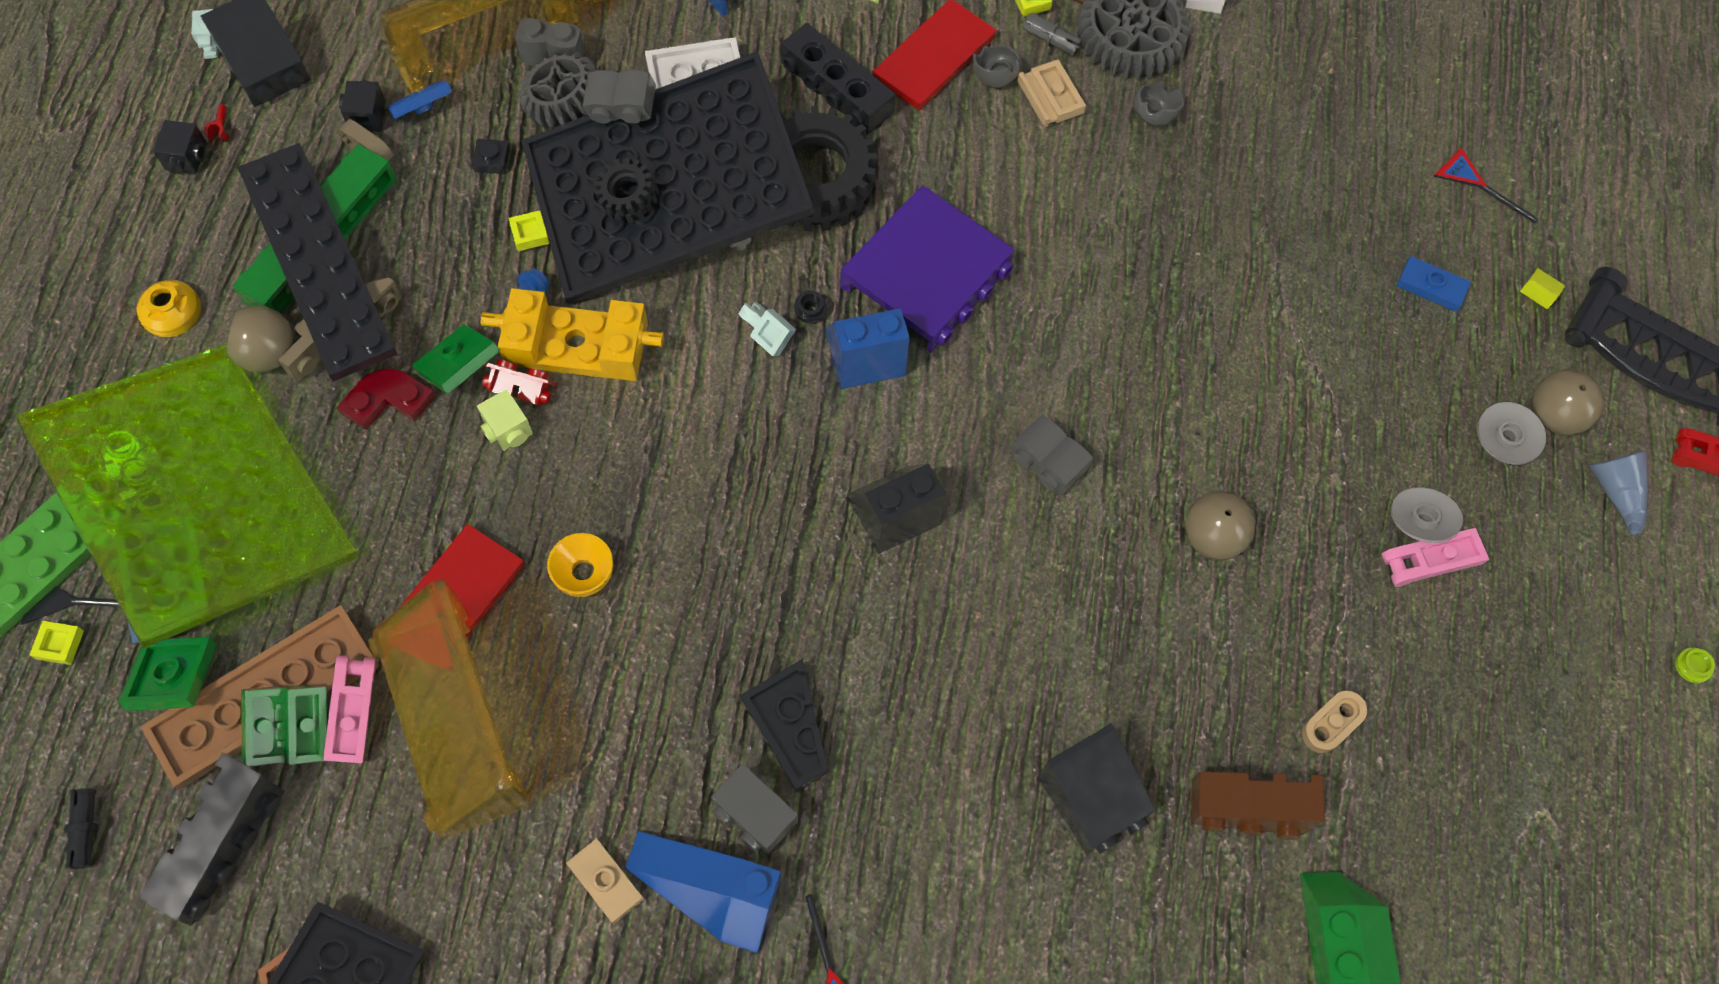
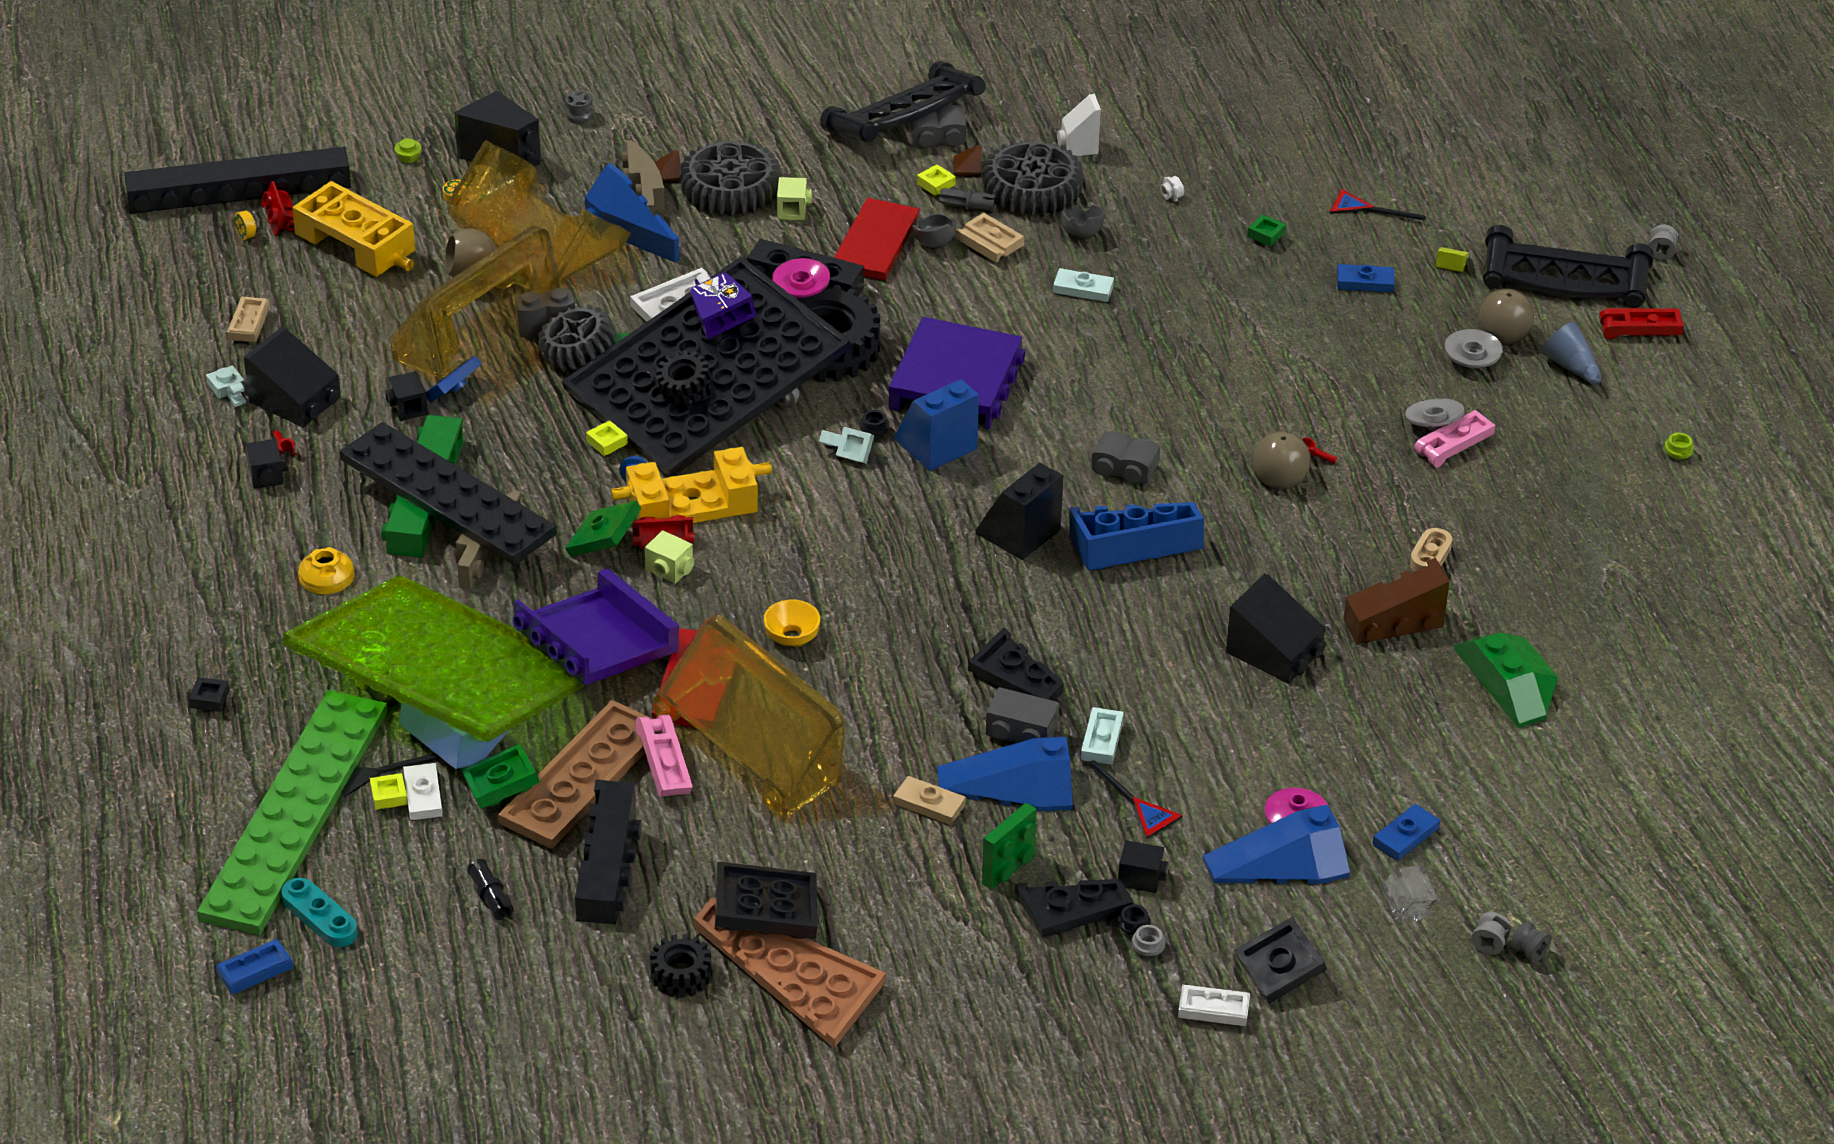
camera: 20 degrees left, 25 degrees down
(95, 653) = (422, 791): none -> white plate
(258, 338) = (431, 557): dark tan helmet -> none
(283, 724) = (619, 763): green slope -> none
(354, 134) = (414, 415): dark tan beam -> none
(368, 505) = (600, 630): none -> dark purple panel
(382, 389) = (552, 569): dark red plate -> none
(491, 156) = (538, 402): black plate -> none
(619, 96) = (640, 318): dark grey brick -> none
(701, 109) = (720, 303): none -> dark purple torso
(806, 89) = (802, 277): none -> dark pink dish
(836, 863) = (1102, 735): none -> light aqua plate
(1007, 576) = (1135, 534): none -> blue wedge
(1121, 189) = (1083, 285): none -> light aqua plate
(1263, 512) = (1317, 452): none -> red hand
(1275, 89) = (1172, 188): none -> white plate
(1352, 181) = (1266, 230): none -> green plate

